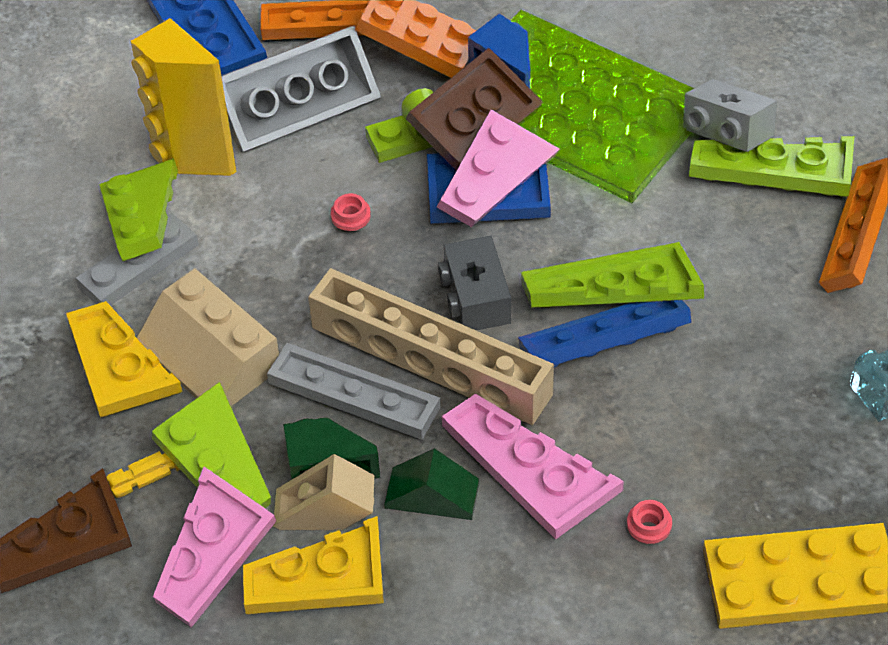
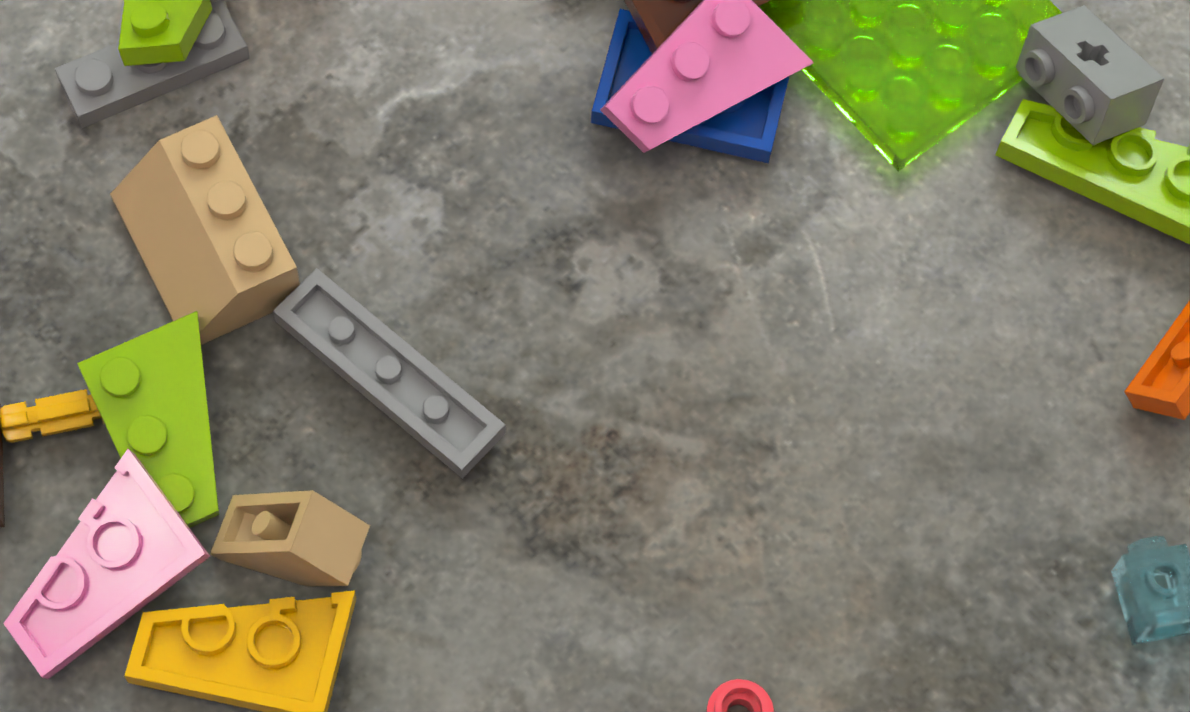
camera: 10 degrees right, 15 degrees up
(116, 362) = (69, 225): yellow wing -> none
(317, 439) = (309, 453): dark green slope -> none
(350, 212) = (479, 58): coral plate -> none
(431, 345) = (519, 339): tan brick -> none
(432, 487) = (451, 563): dark green slope -> none
(476, 283) = (625, 216): dark grey brick -> none
(538, 474) = (609, 588): bright pink wing -> none
(605, 330) = (781, 381): blue plate -> none
(624, 277) = (837, 303): lime wing -> none

